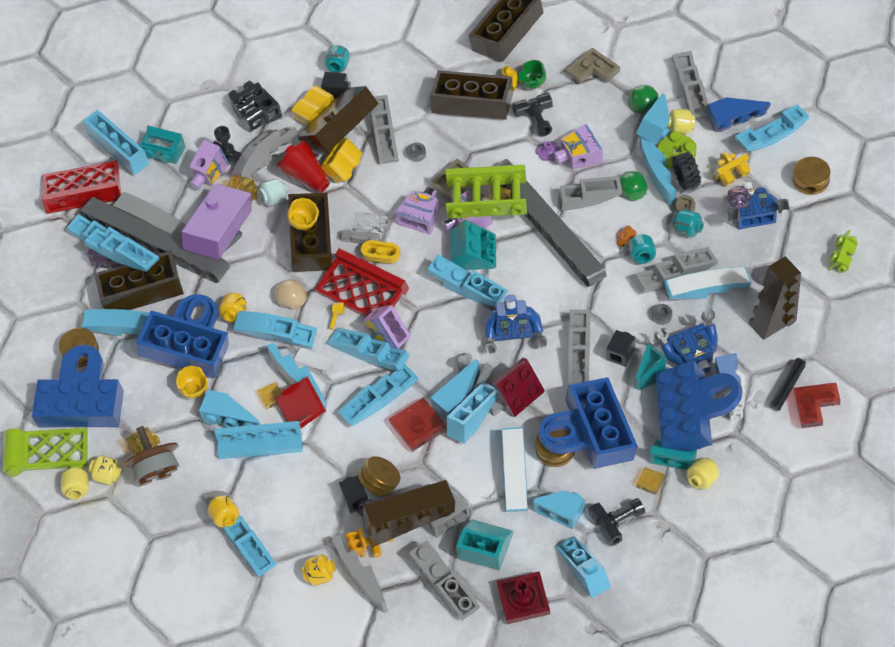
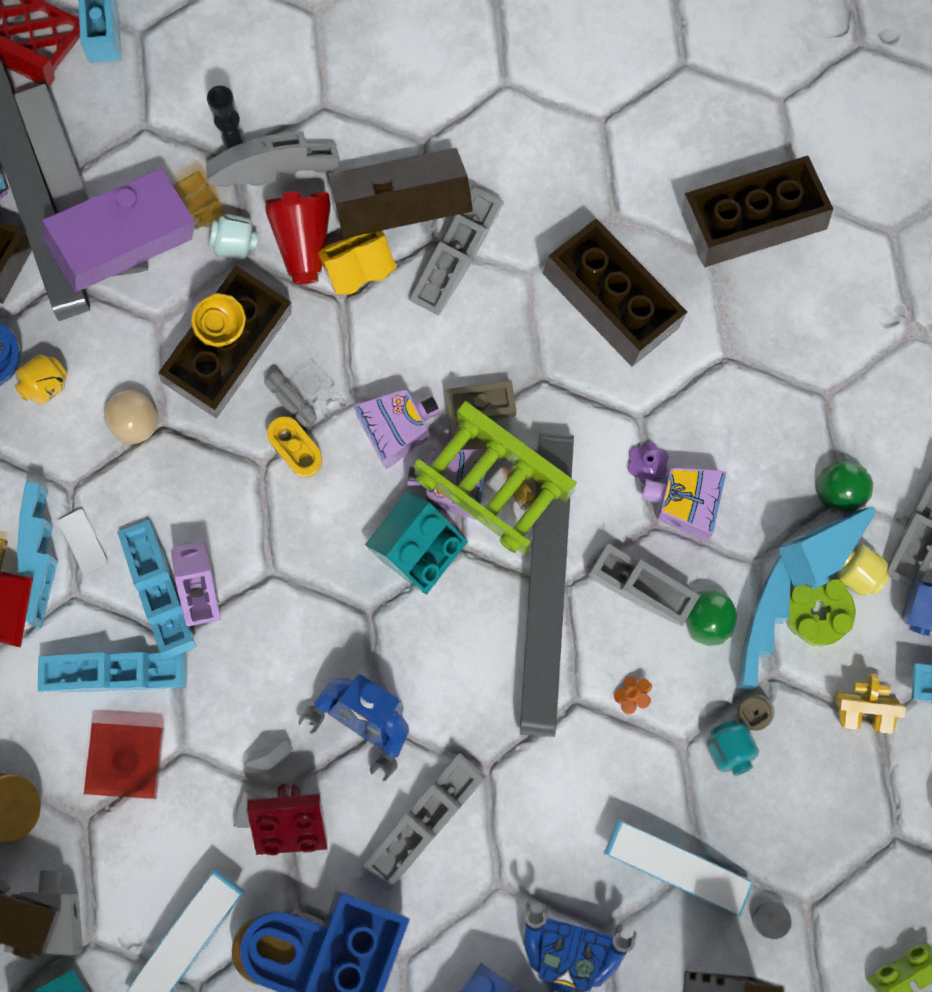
camera: 30 degrees right, 20 degrees up
(163, 144) = (155, 45): teal window -> none
(207, 164) = (181, 127): lavender torso -> none
(255, 104) = (320, 63): black hips -> none
(275, 327) = (62, 461): medium azure slope -> none
(311, 105) = (394, 137): yellow brick -> none
(335, 83) = (449, 127): black brick -> none
(337, 58) = (486, 85): teal head -> none
(337, 309) = (168, 490): yellow hand -> none
(366, 270) = (254, 472): red fence -> none
(416, 152) = (472, 321): flat silver tile -> none
(456, 390) = (205, 759): medium azure slope -> none
(463, 361) = (257, 716): light grey tile -> none
(467, 284) = (363, 593): medium azure slope -> none
(470, 413) = (200, 806): medium azure slope -> none
(508, 71) = (695, 301): yellow arm -> none
(532, 75) = (723, 325): green hair -> none
(534, 110) = (682, 381): black bar -> none
(592, 63) = (824, 370): dark tan plate -> none
(620, 348) = (478, 871): black brick -> none
(642, 249) = (636, 736): teal head -> none
(652, 362) = (488, 940): teal slope -> none
(662, 314) = (579, 859): flat silver tile -> none
(680, 265) = (655, 806): light grey slope -> none
(686, 170) = (799, 664): black tyre -> none
(738, 197) = (826, 782): clear purple plate -> none
(761, 209) = (847, 800): blue torso -> none

